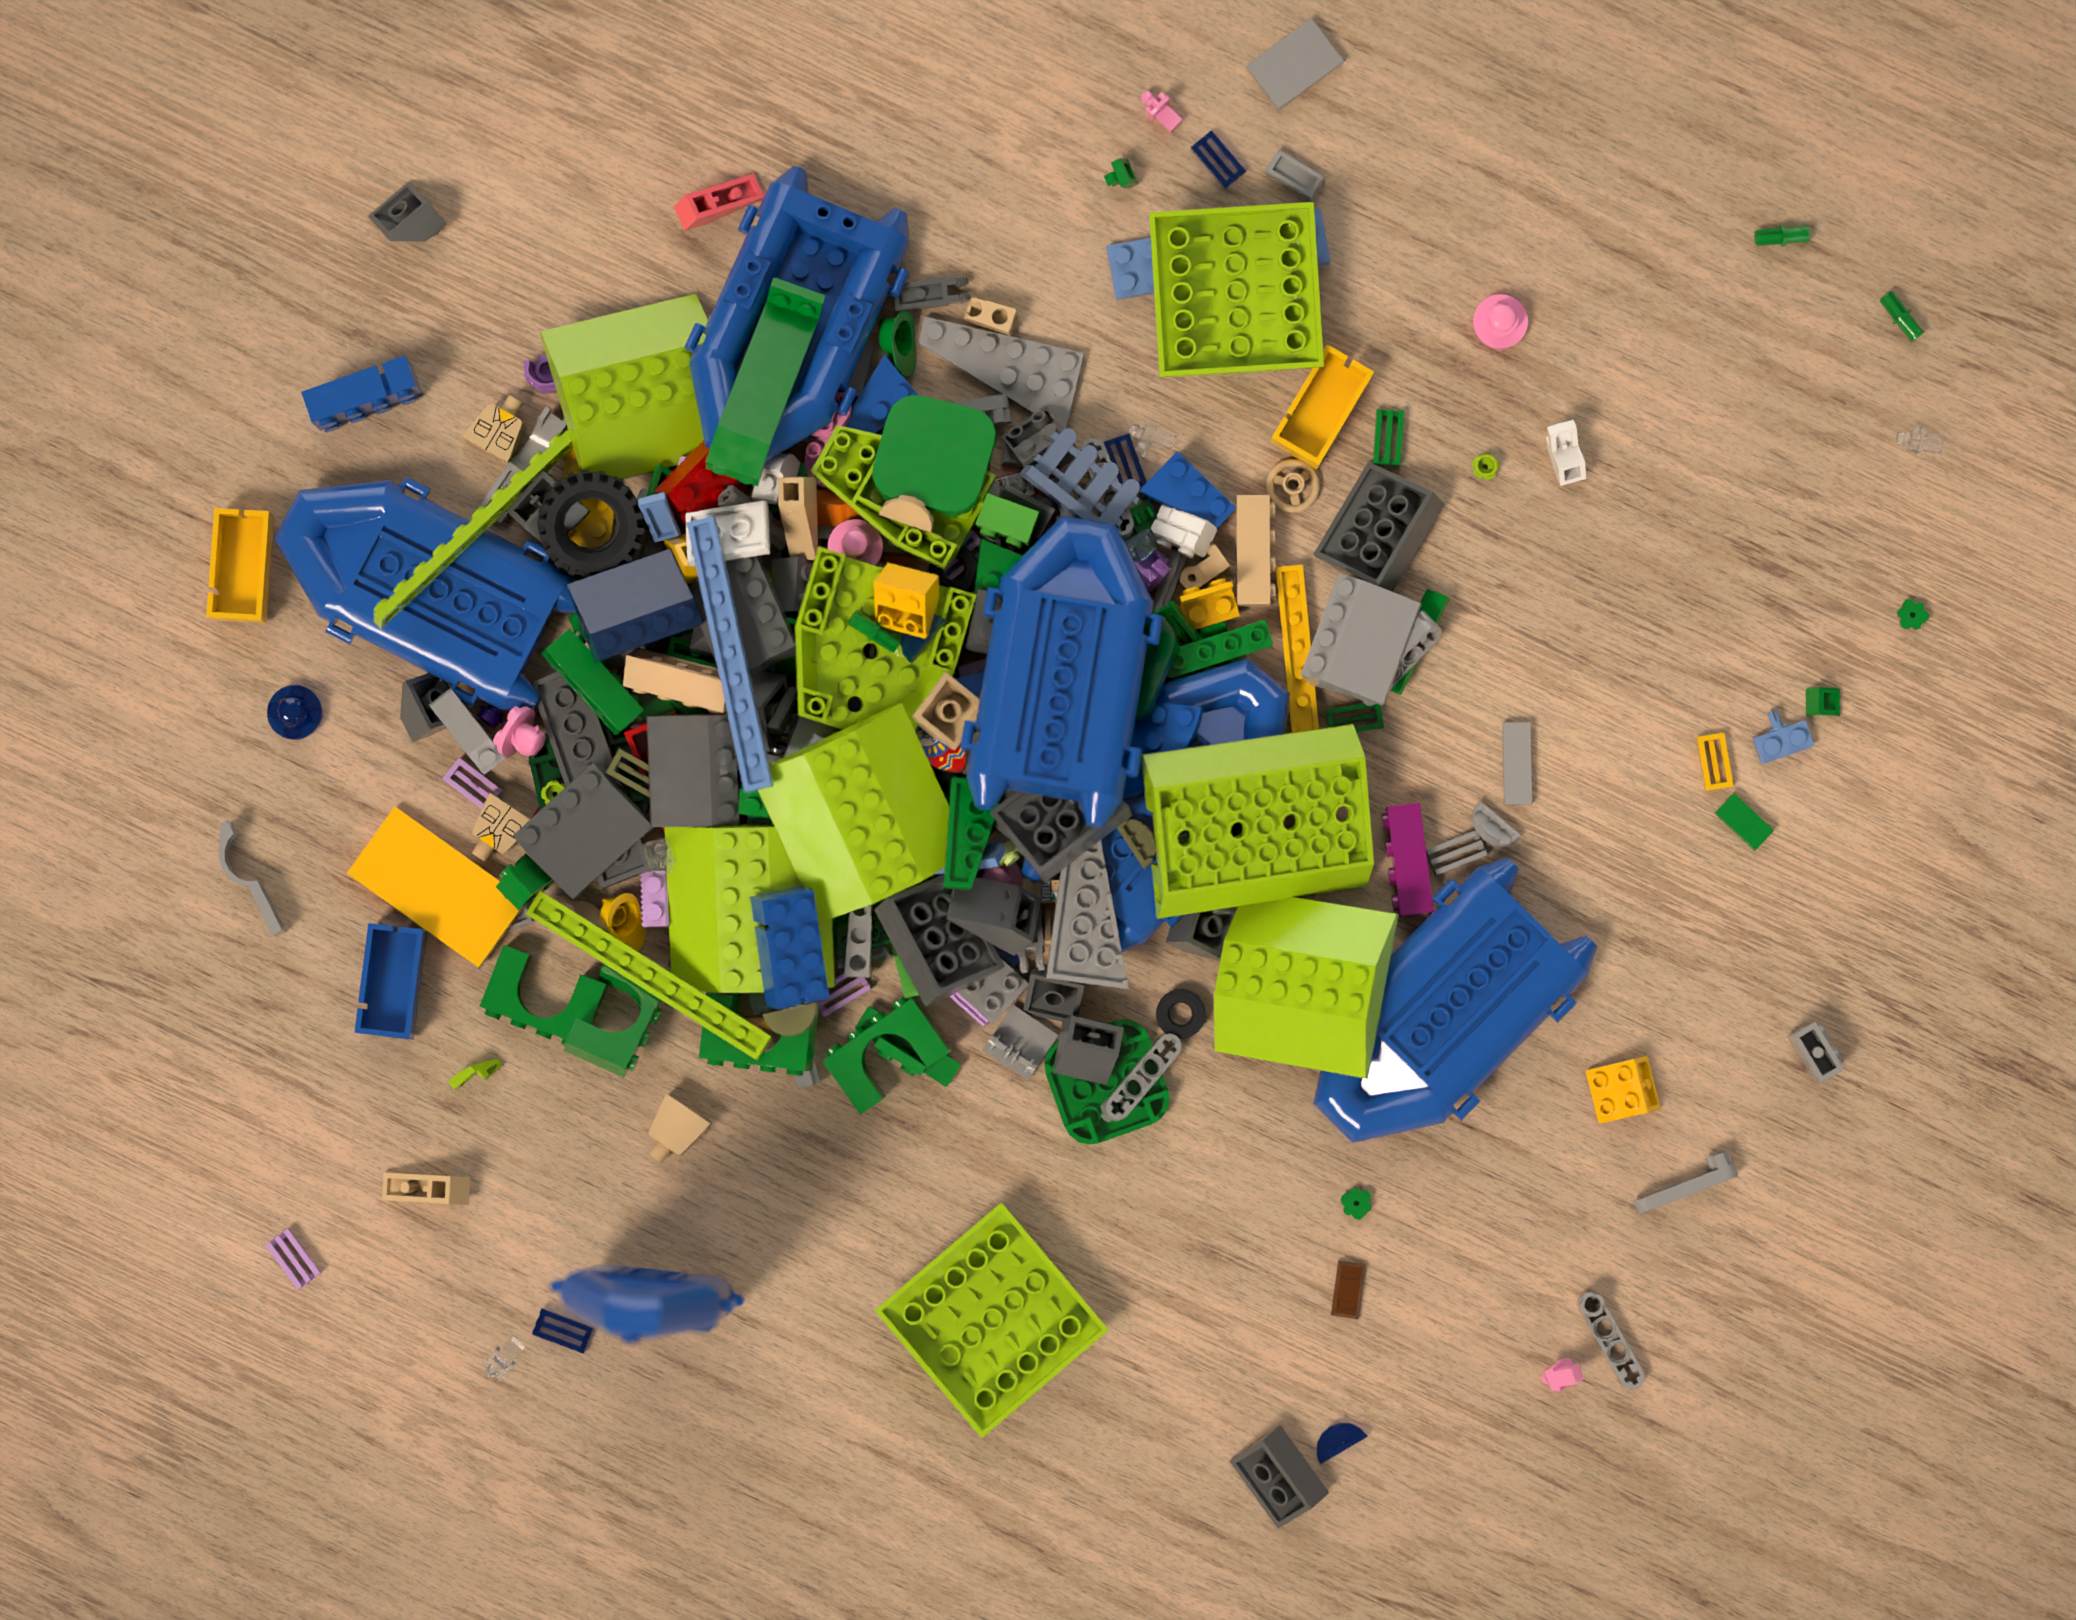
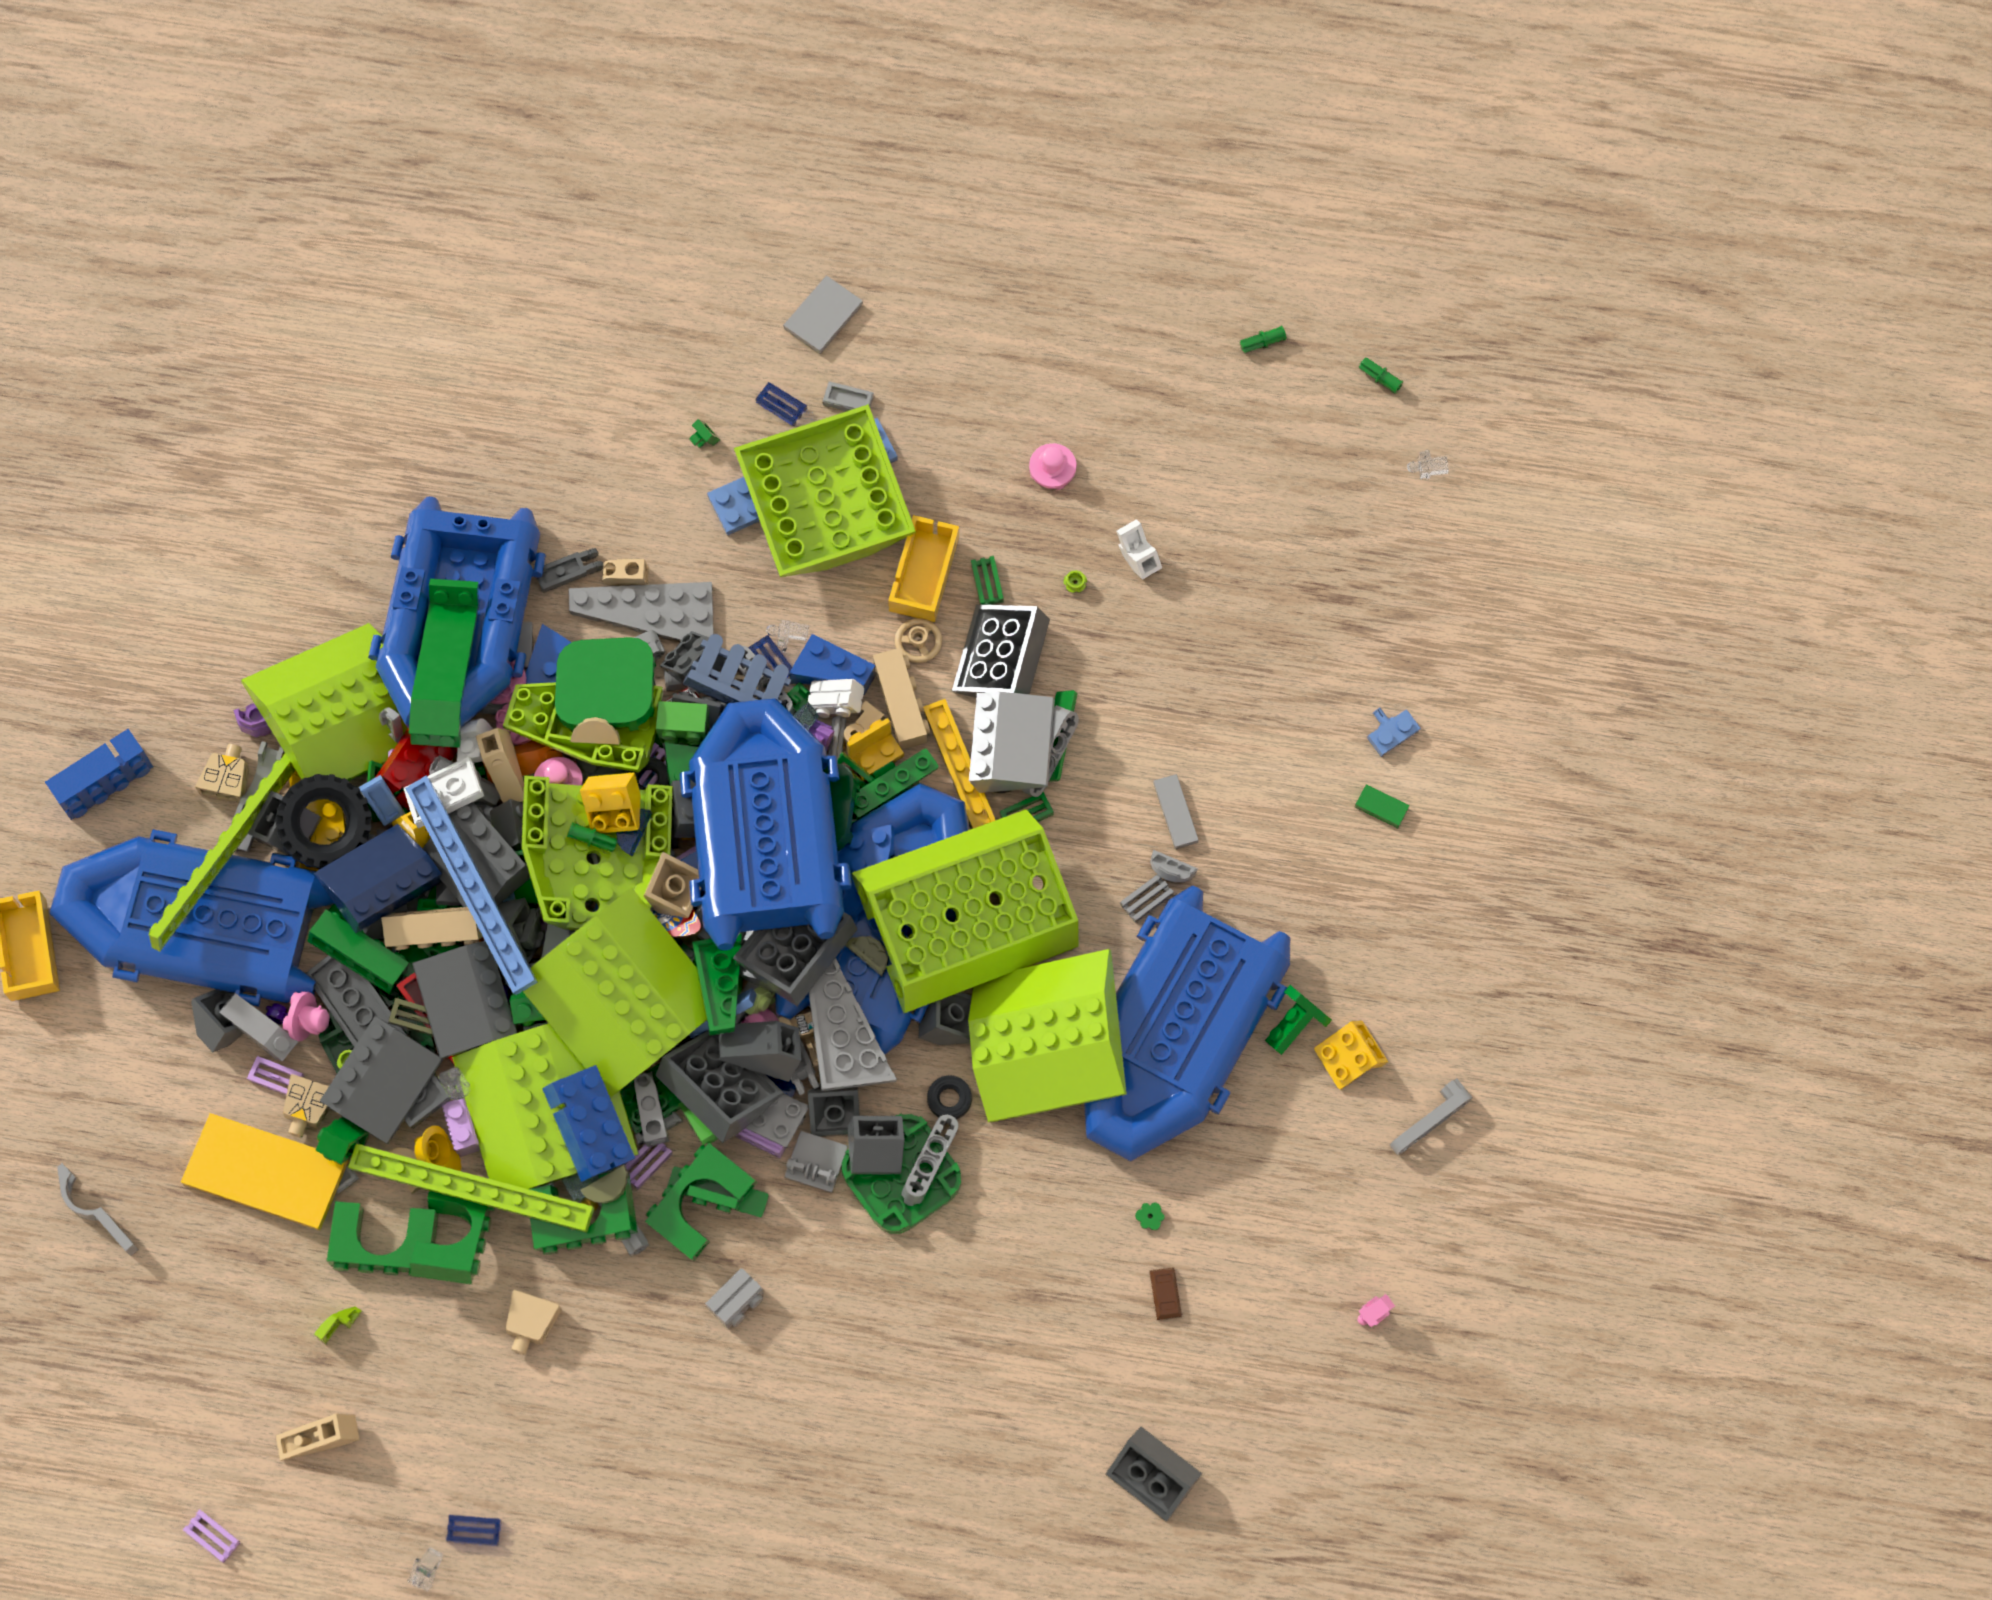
camera: 20 degrees left, 15 degrees down
(294, 712) = (102, 1058): clear blue plate -> none
(391, 981) = (242, 1262): blue piece -> none
(407, 216) = (107, 623): dark grey slope -> none
(646, 1301) = (540, 1450): blue piece -> none
(693, 428) = (393, 721): none -> light grey tile
(717, 201) = (367, 544): coral slope -> none
(895, 1167) = (735, 1298): none -> light grey brick
(898, 341) = (551, 612): green piece -> none
(991, 1320) = (856, 1405): lime slope -> none
(1159, 110) = (722, 378): bright pink piece -> none
(1337, 1439) = (1195, 1427): clear blue tile -> none
(1409, 860) = (1107, 913): magenta brick -> none
(1574, 1039) = (1295, 1021): none -> green bracket
(1613, 1338) = (1410, 1268): light grey beam -> none
(1725, 761) = (1350, 782): yellow tile -> none
(1815, 1052) = (1504, 974): light grey brick -> none
(1822, 701) = (1416, 692): green slope -> none
(1917, 609) = (1470, 598): green plant -> none

